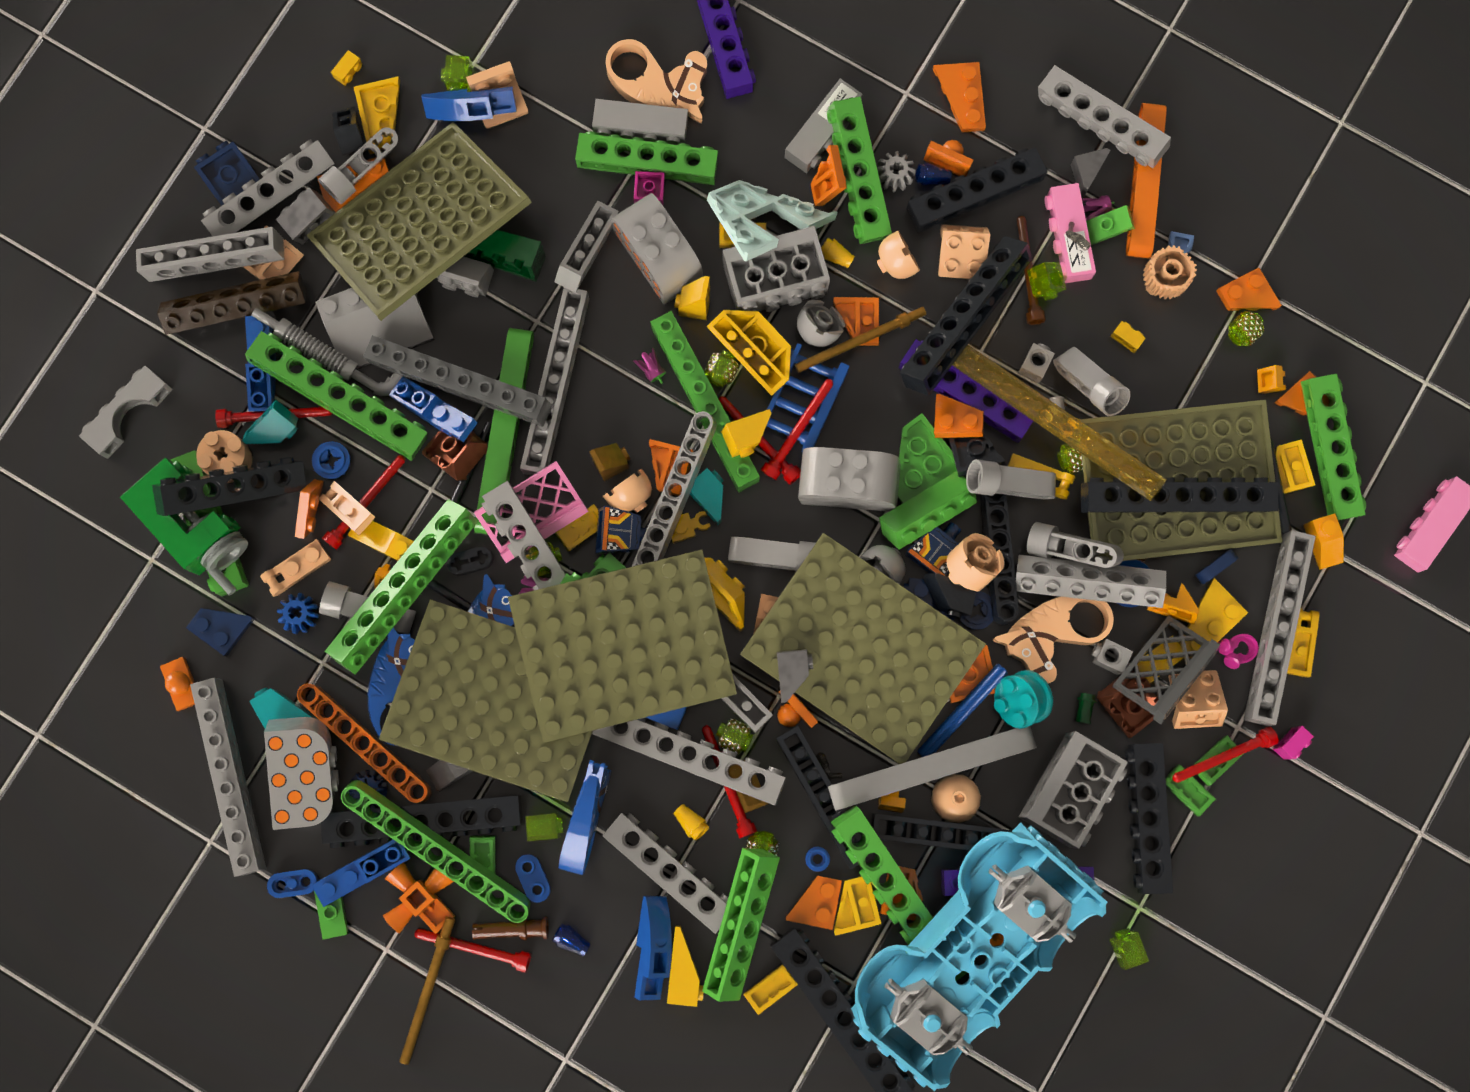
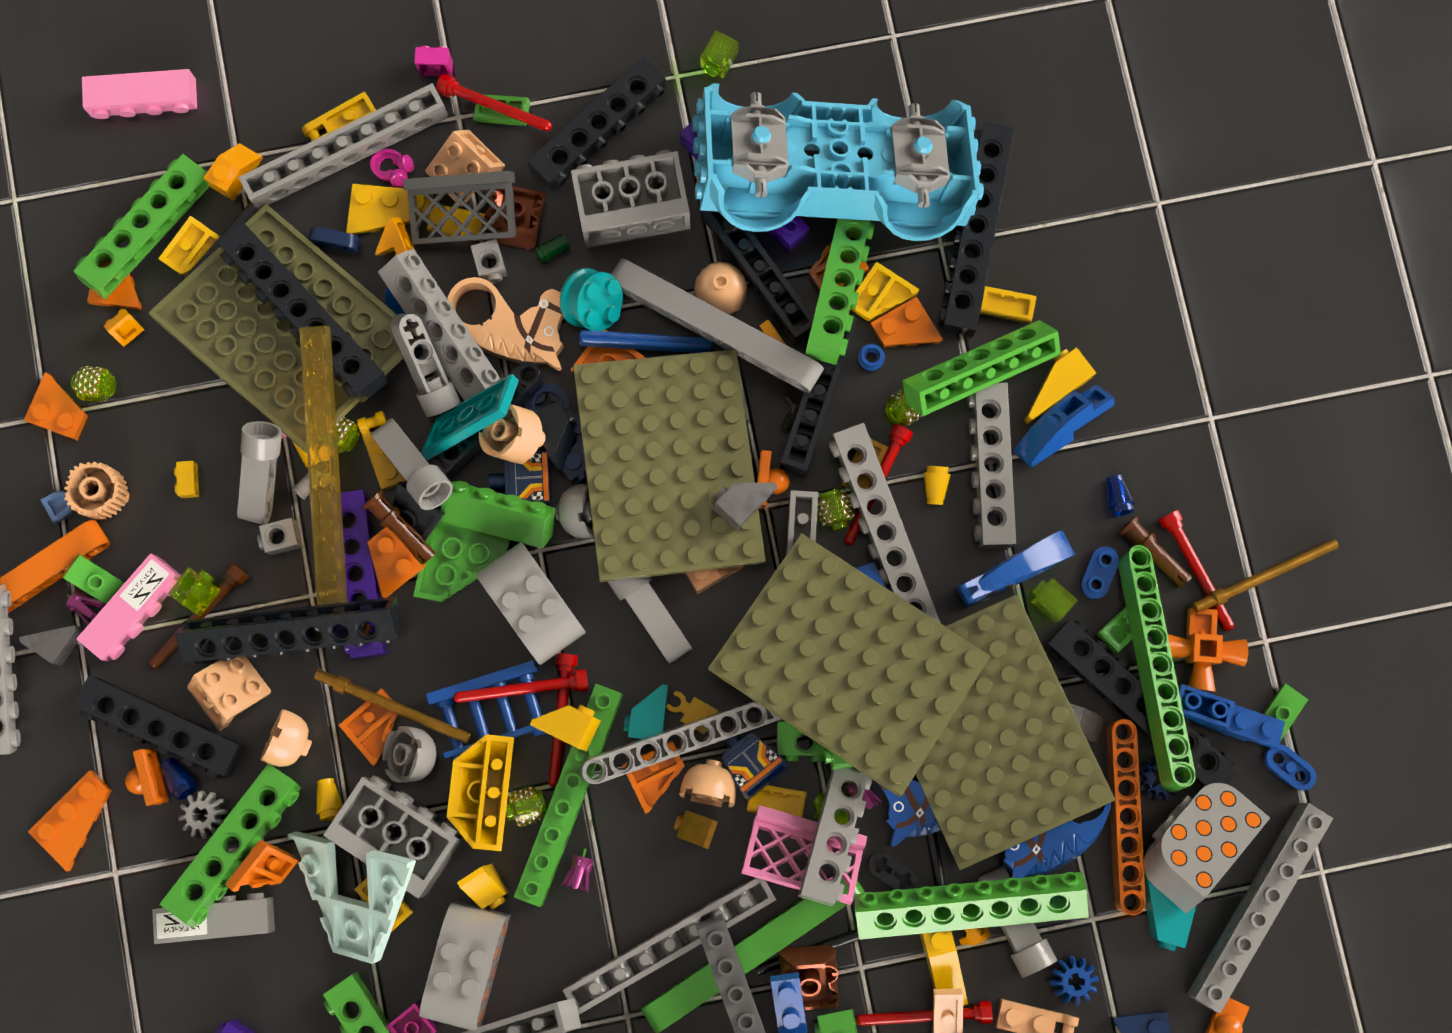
camera: 135 degrees left, 0 degrees up
(727, 593) = (719, 625): yellow wedge -> none
(983, 437) = (391, 518): none -> reddish brown pin
(1009, 545) = (470, 416): none -> teal tile
(1078, 238) = (132, 594): clear smoke piece -> none
(1190, 792) = (547, 106): bright green plate -> none

